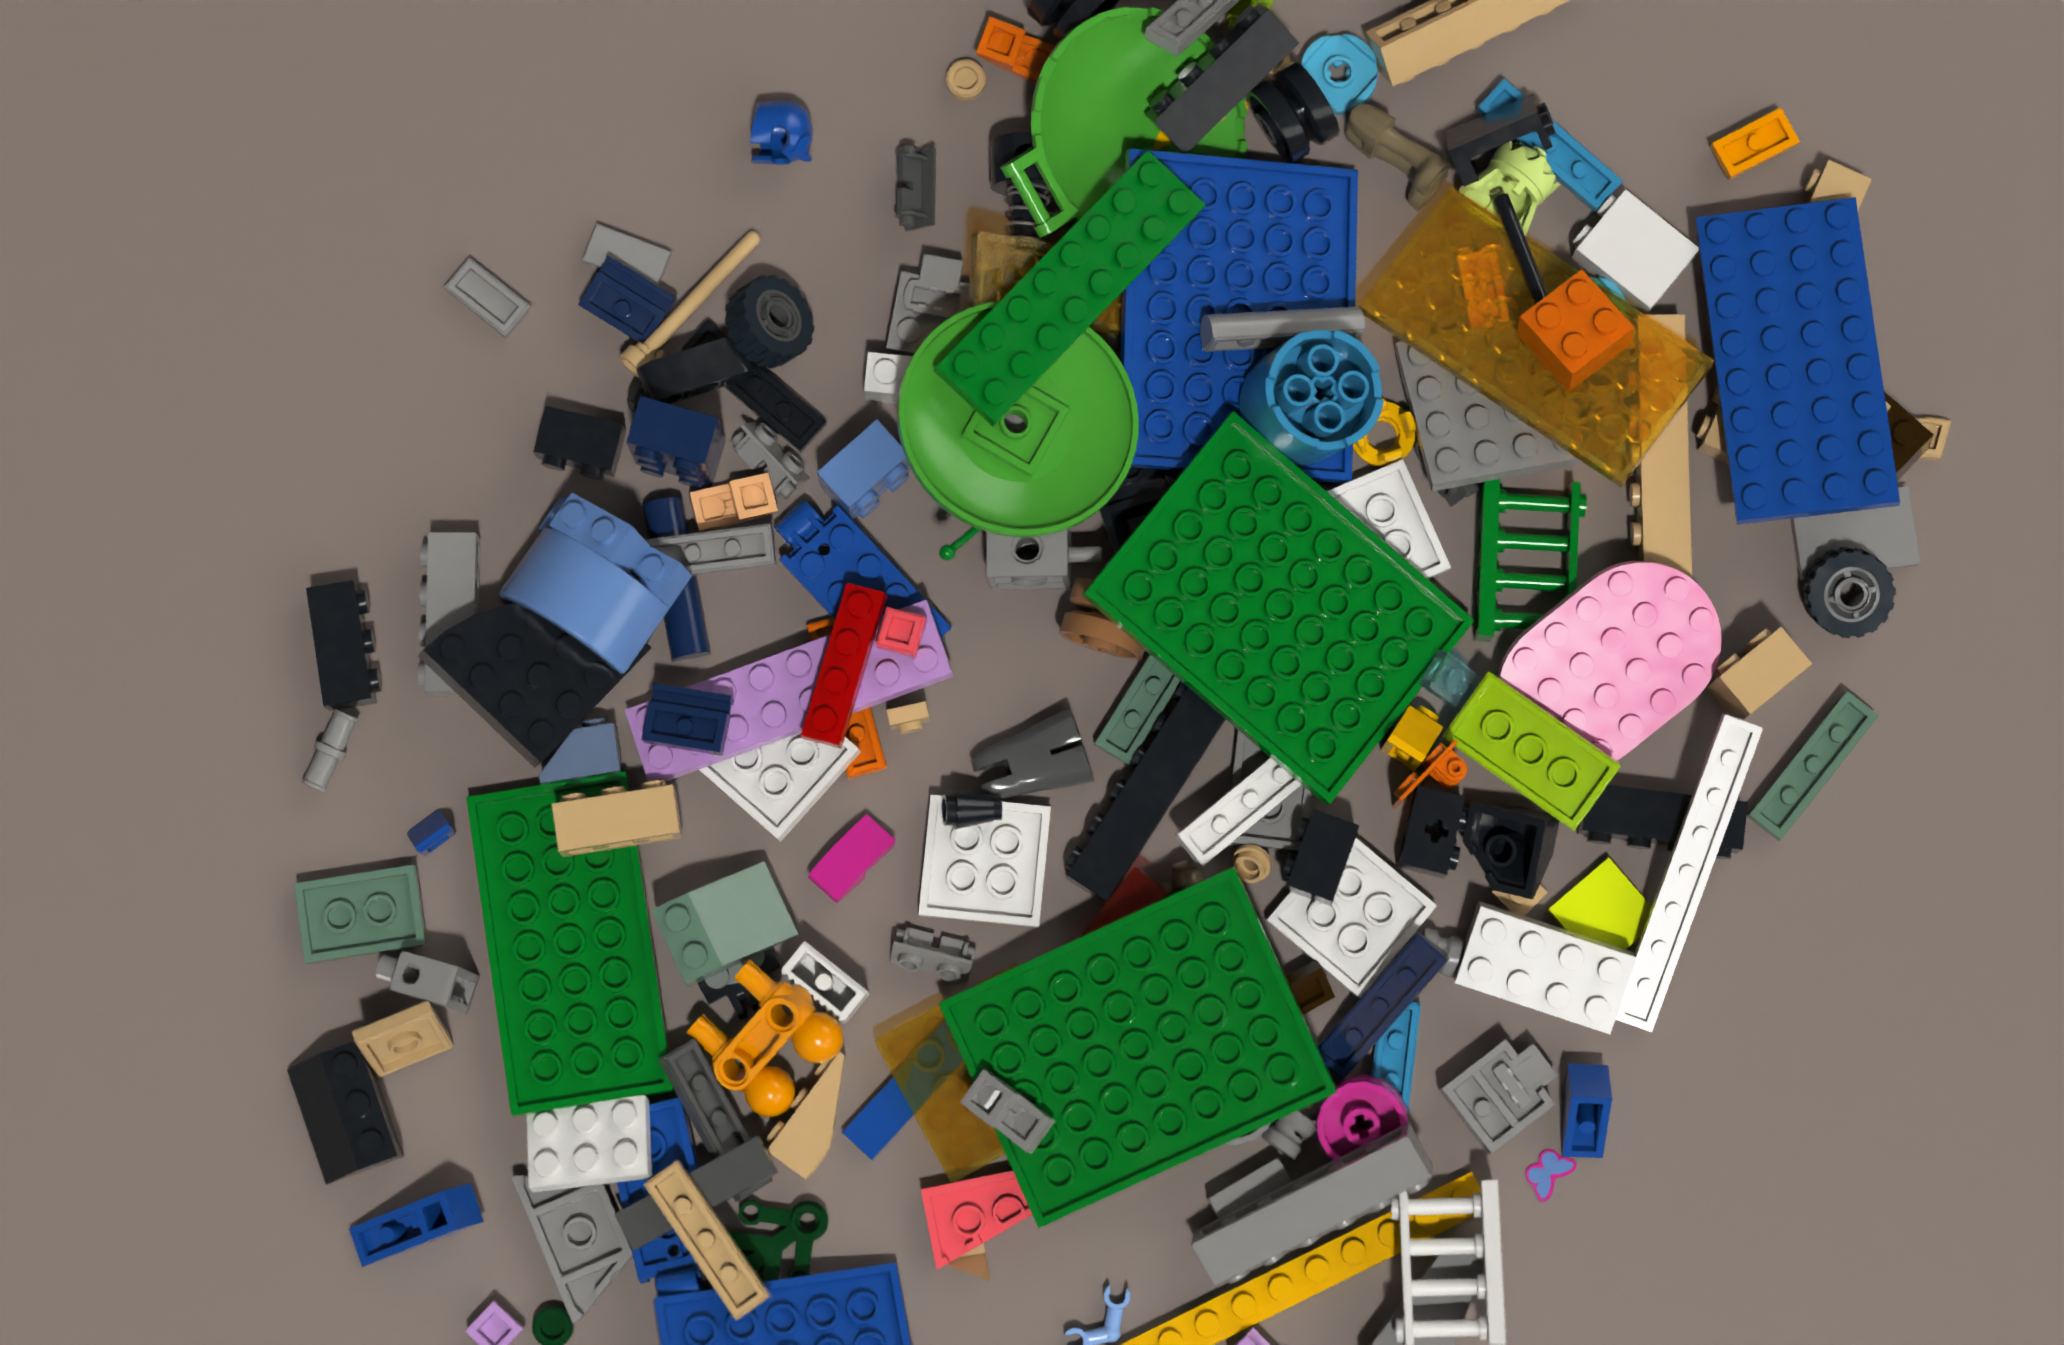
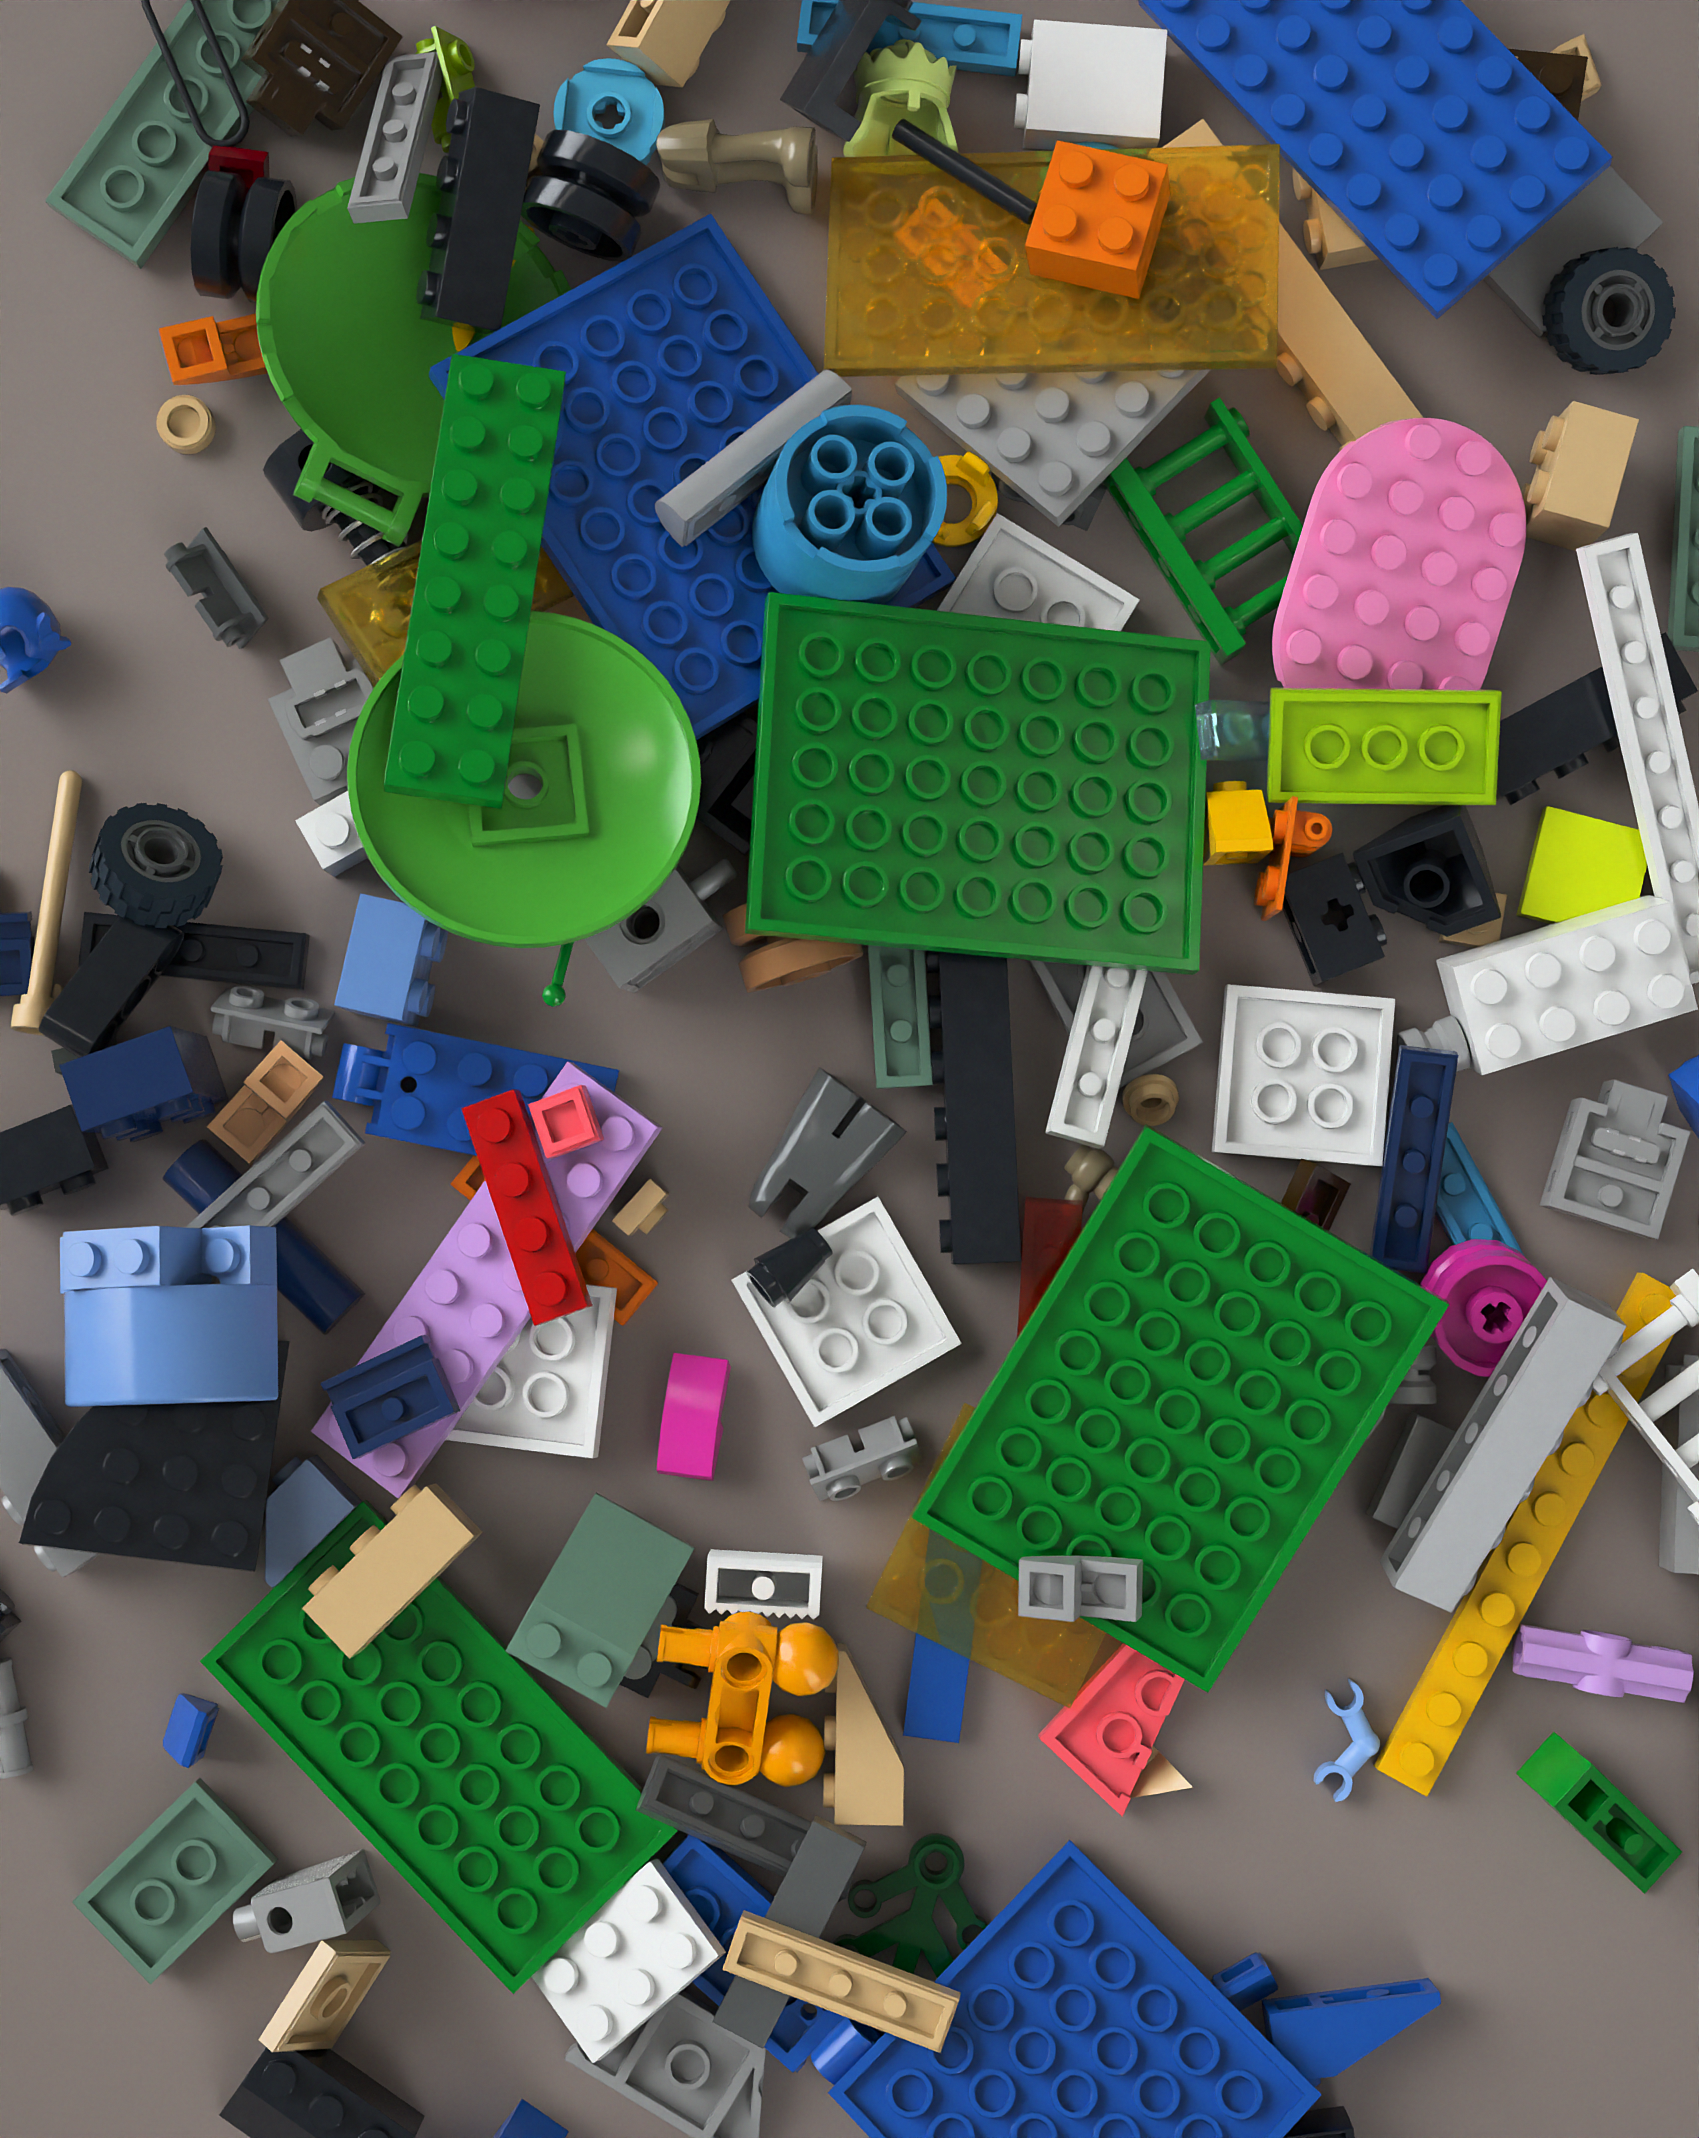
camera: 35 degrees left, 5 degrees up
(1321, 856) = (1228, 1038): black brick -> none

